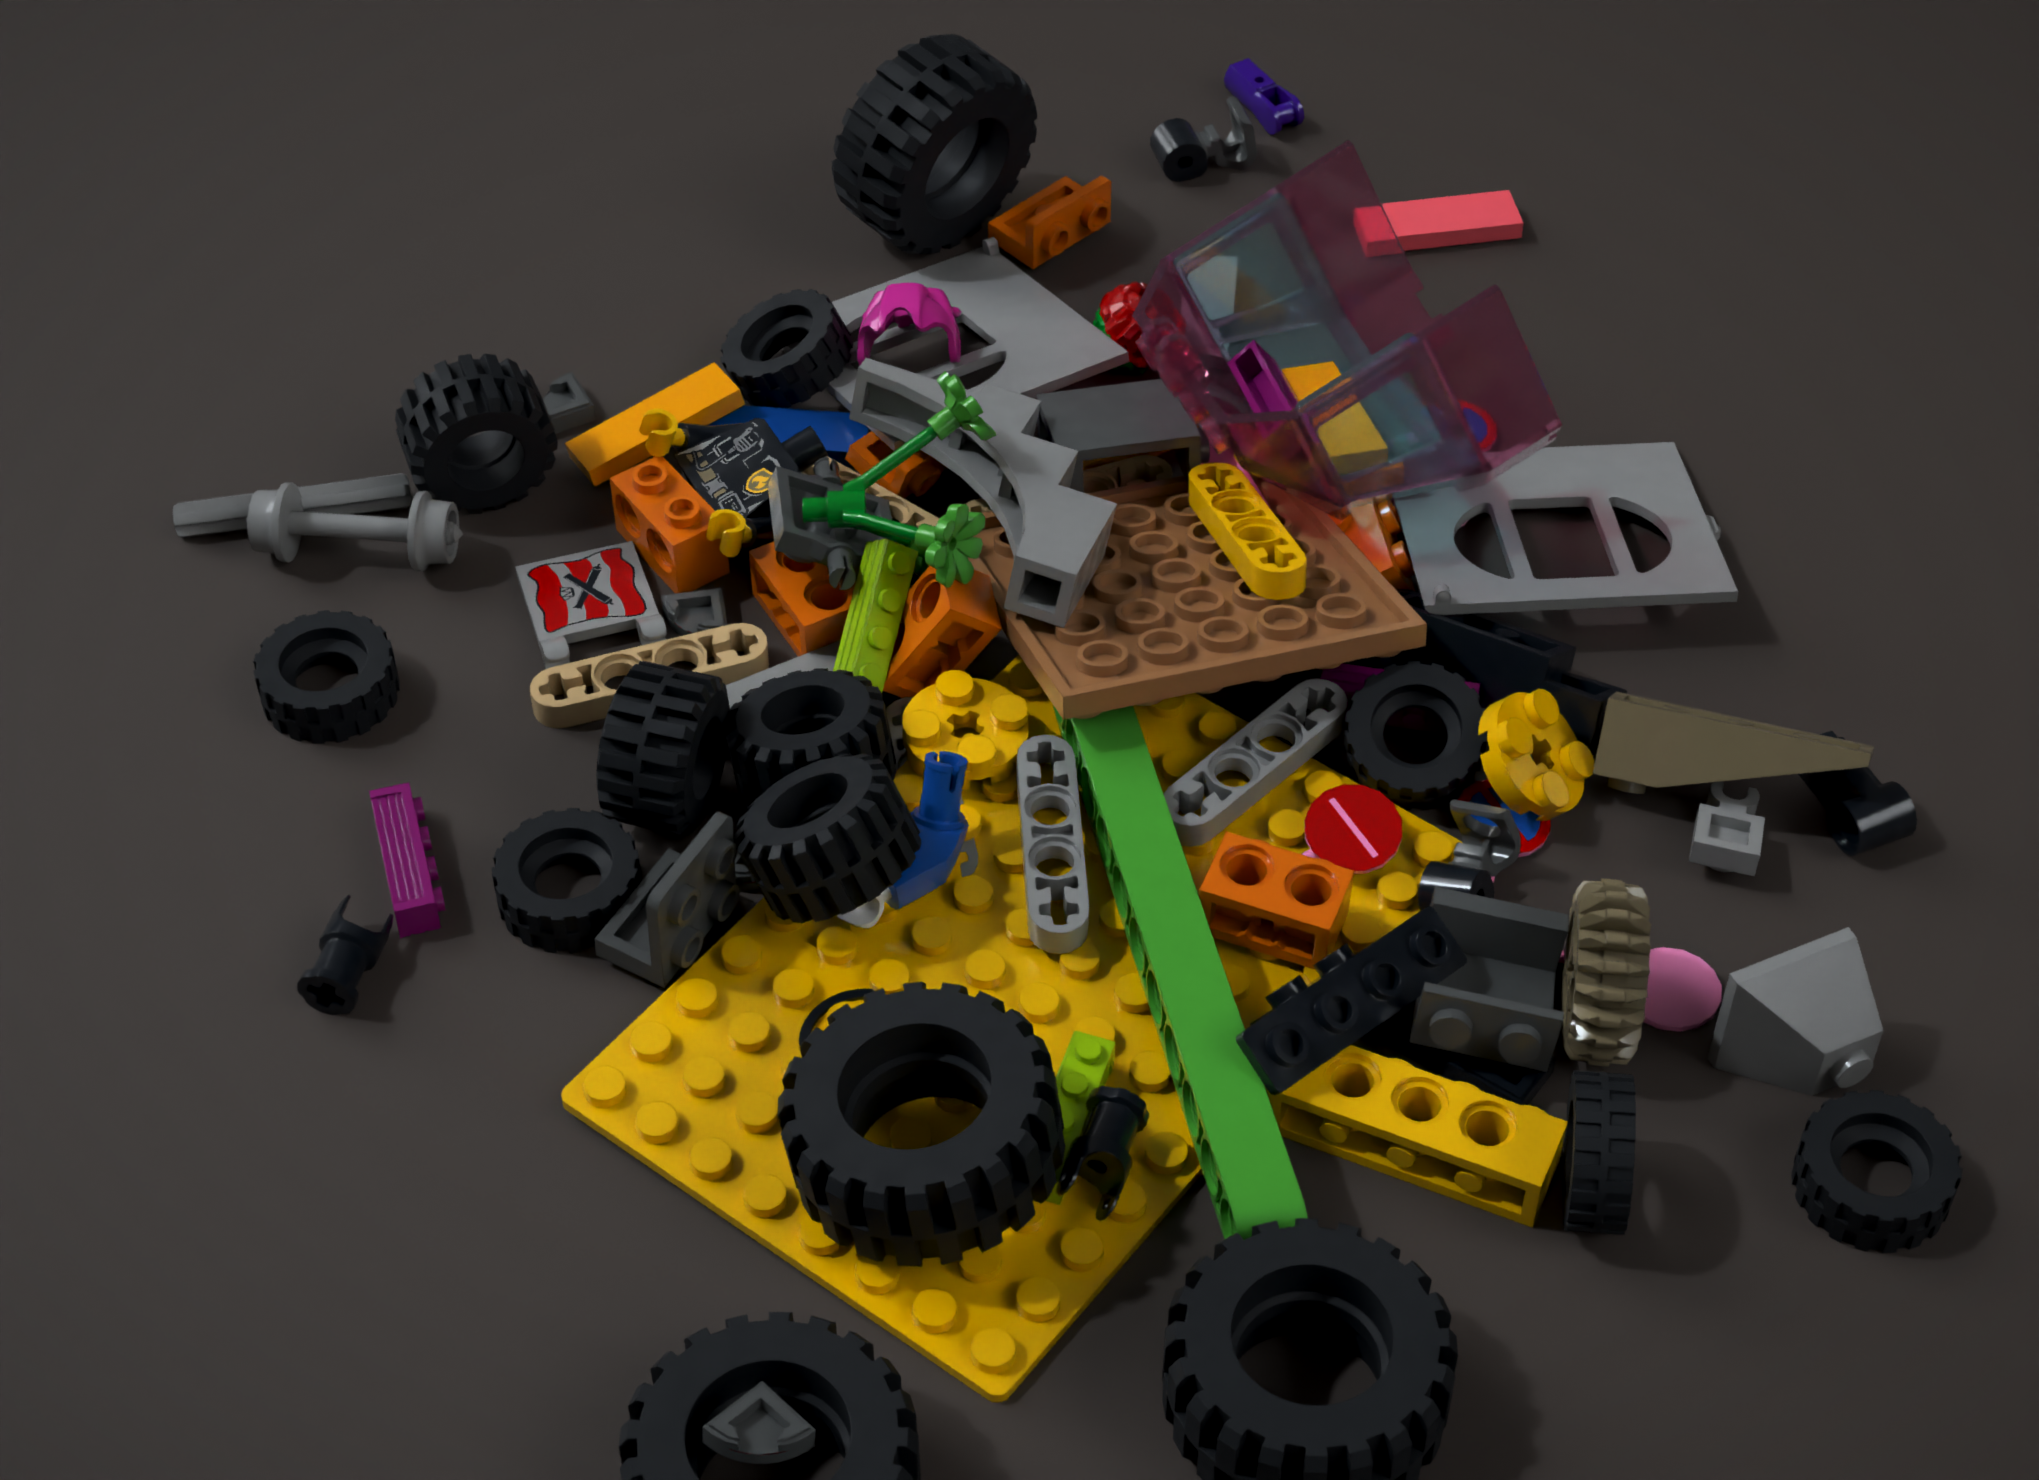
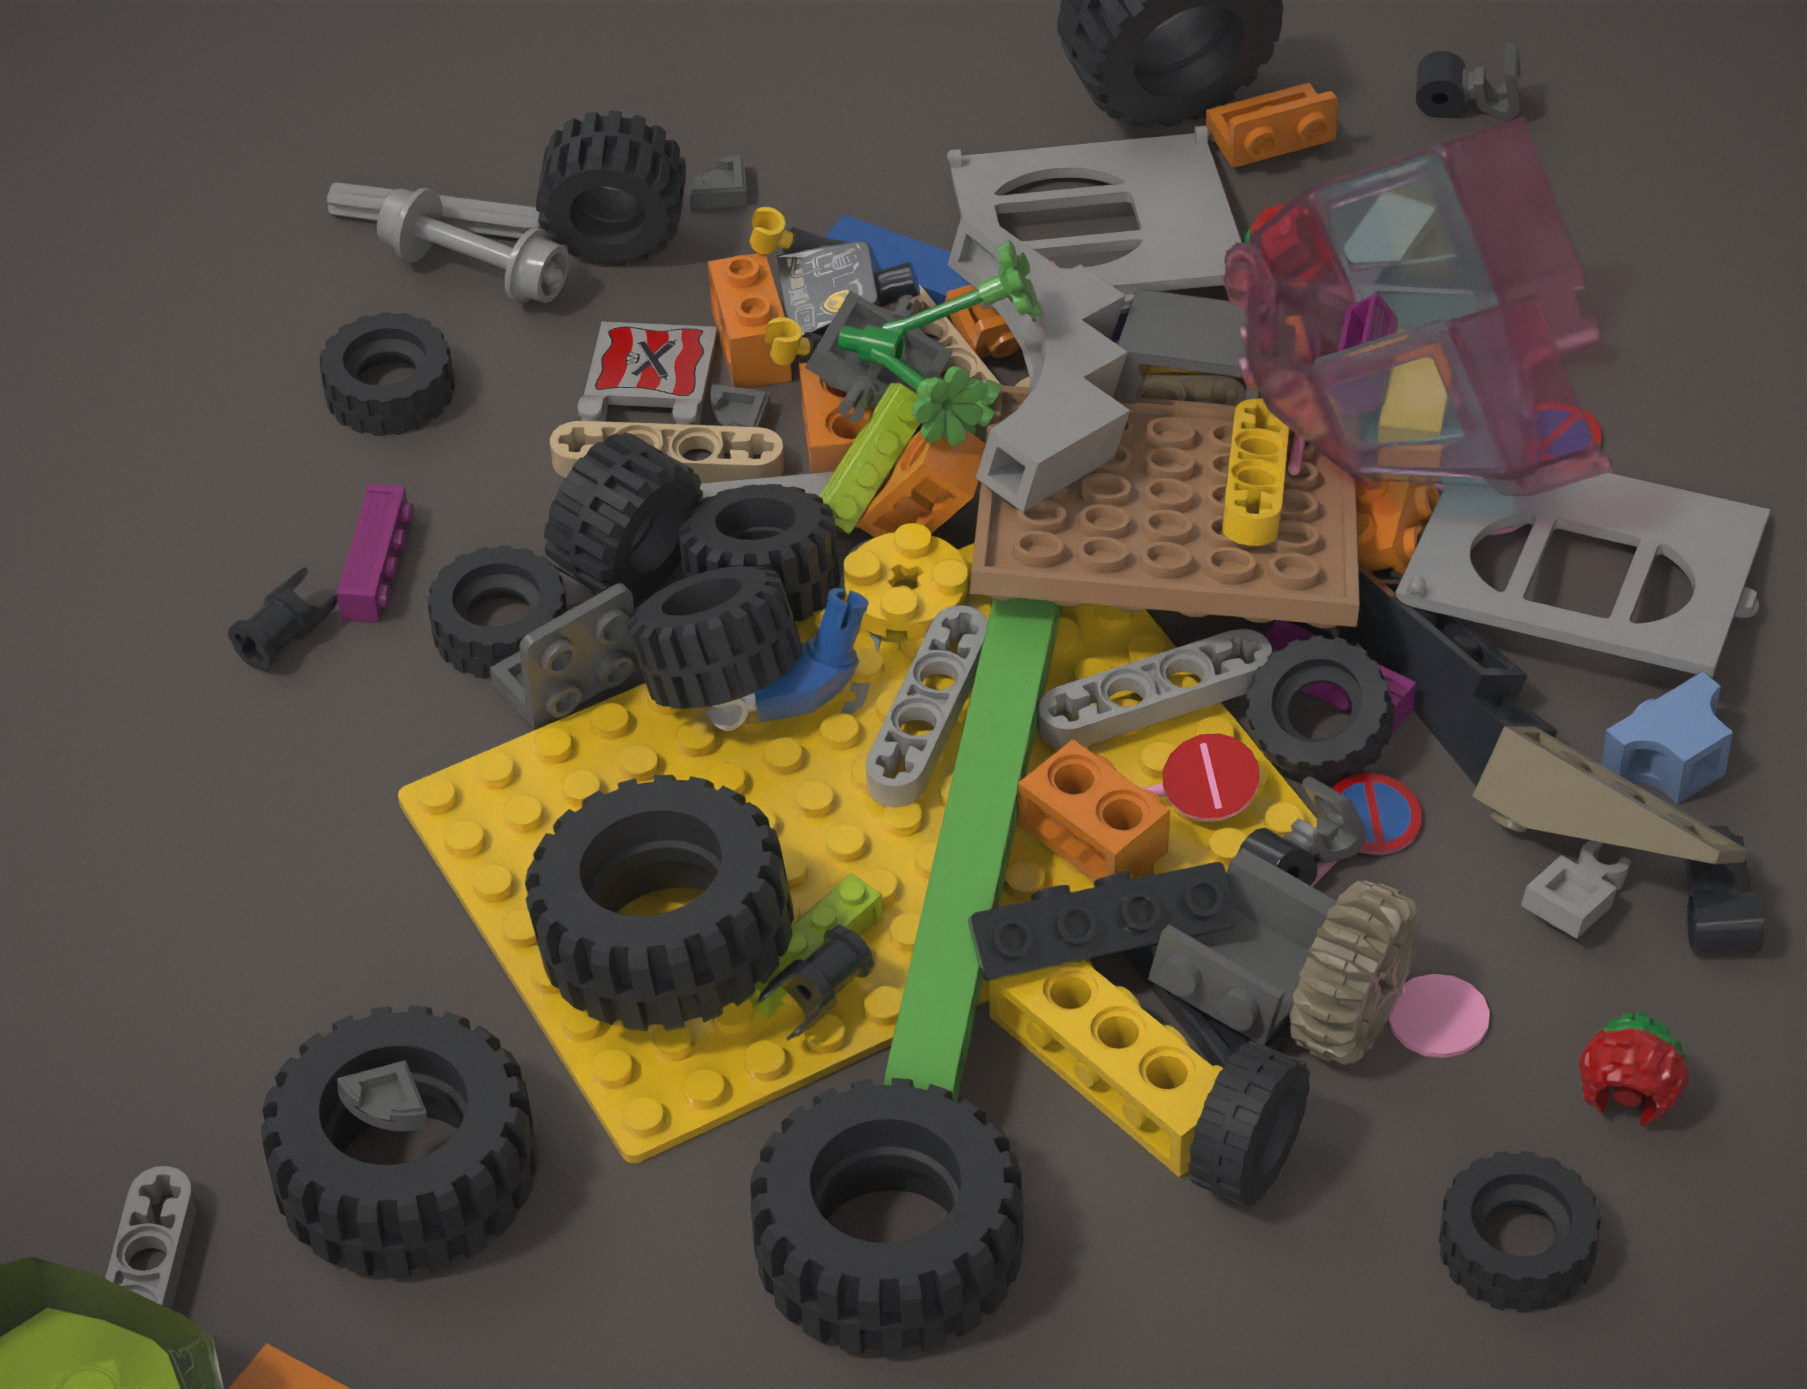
camera: 25 degrees right, 0 degrees up
(620, 445) = (824, 212): light orange tile -> none
(801, 370) = (940, 182): black tyre -> none
(905, 306) = (1067, 178): dark pink helmet -> none
(1263, 97) = (1562, 50): dark purple bar -> none
(1455, 220) = (1665, 225): coral tile -> none
(1534, 726) = (1449, 753): yellow plate -> none
(1731, 667) = (1672, 741): none -> medium blue brick
(1800, 1018) = (1518, 1070): light grey slope -> none
(1902, 975) = (1637, 1060): none -> red piece

